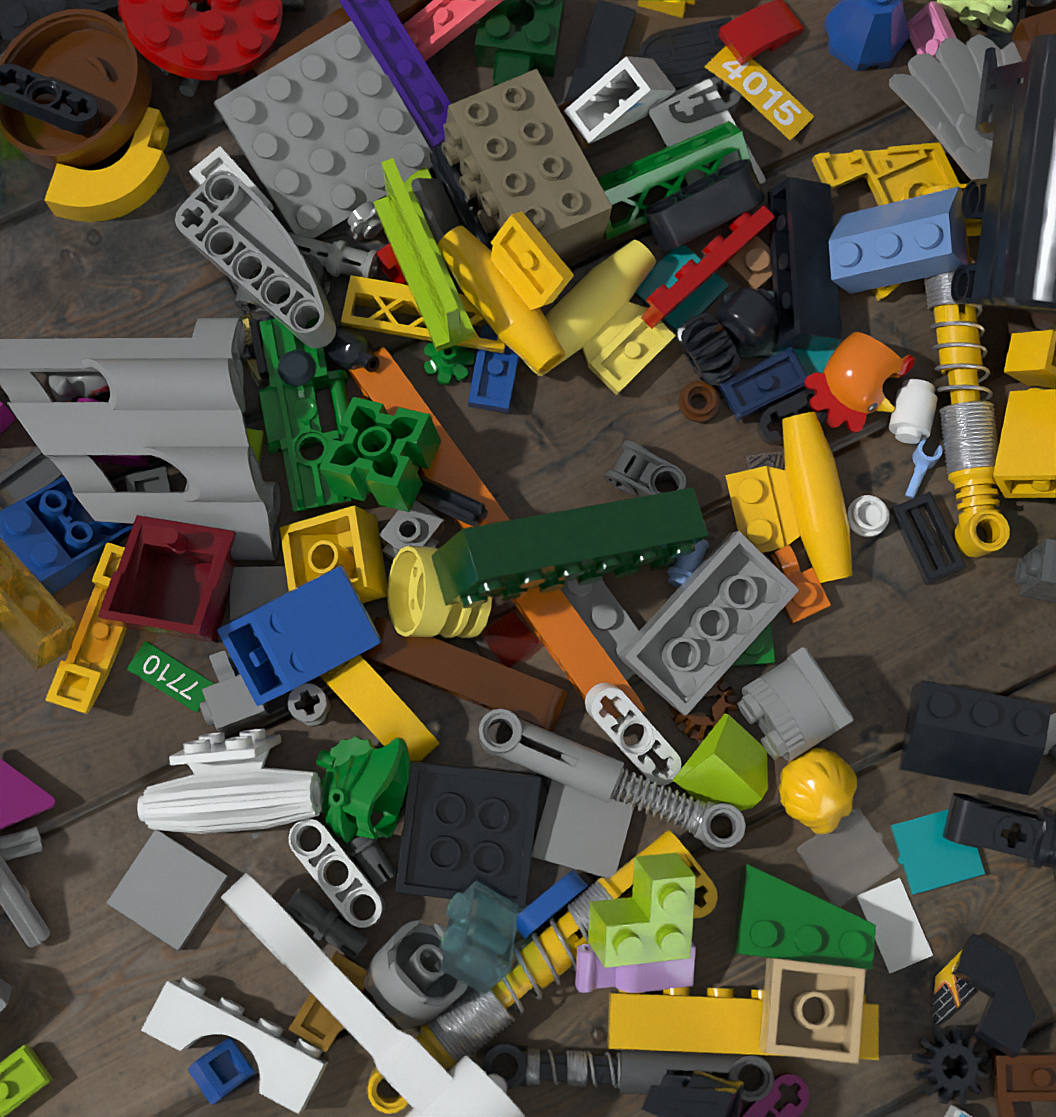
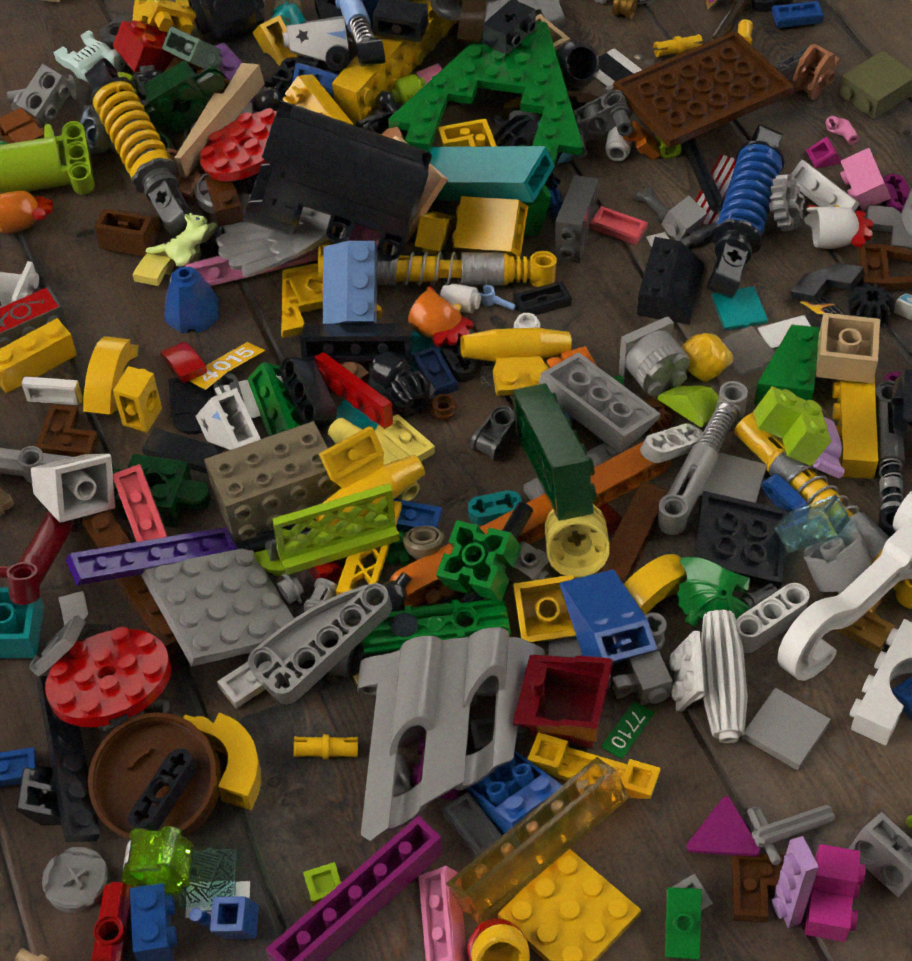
camera: 85 degrees left, 25 degrees down
(131, 291) = (326, 746): none -> yellow pin
(443, 385) = (423, 541): none -> dark tan brick
(530, 481) = (493, 505): none -> teal beam

